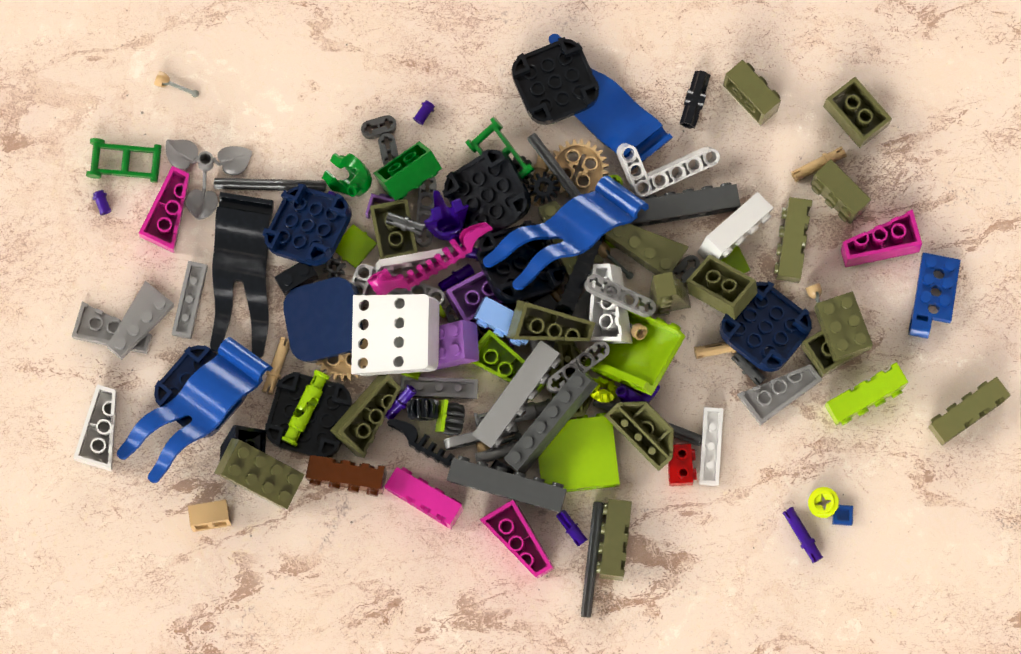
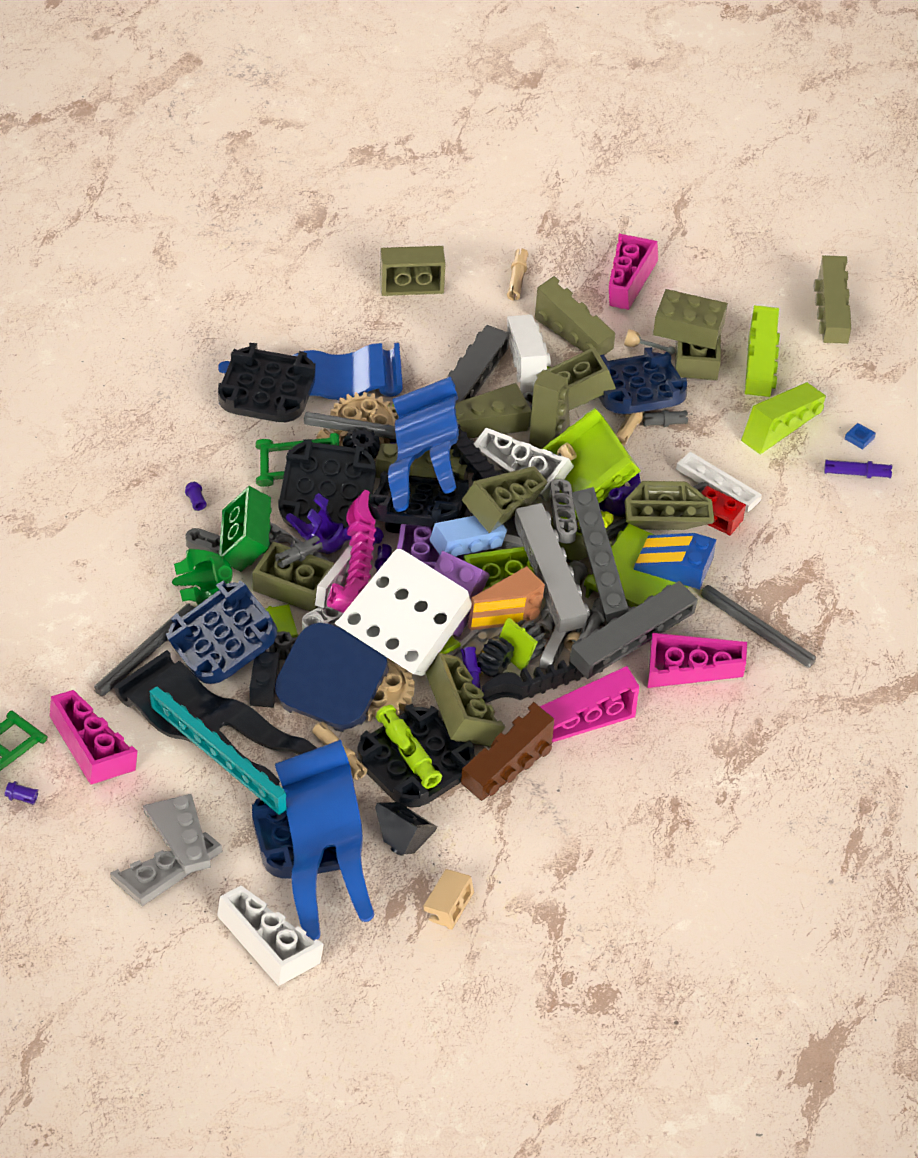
camera: 60 degrees left, 30 degrees down
(183, 152) = (78, 665): light grey plant -> none
(189, 300) = (200, 780): light grey plate -> none
(206, 304) = (218, 750): none -> teal plate
(259, 473) = (446, 814): olive brick -> none
(377, 122) = (170, 535): dark grey beam -> none
(381, 198) = (245, 576): medium lavender bracket -> none
(471, 390) = (513, 598): none -> nougat slope
(572, 528) = (713, 621): dark purple axle -> none
(596, 469) = (677, 557): none -> blue slope
(615, 539) = (757, 593): olive wedge -> none
(621, 292) = (524, 434): light grey beam -> none
(665, 171) = (409, 377): white beam -> none
(695, 99) = (378, 314): black piece -> none
(773, 396) = (707, 412): light grey wing -> none
(813, 450) = (781, 415): none -> lime wedge
(816, 498) = (834, 430): neon yellow gear -> none
(840, 192) = (566, 261): olive brick -> none
(857, 112) = (496, 222): olive brick -> none
(921, 317) = (706, 270): blue hinge -> none

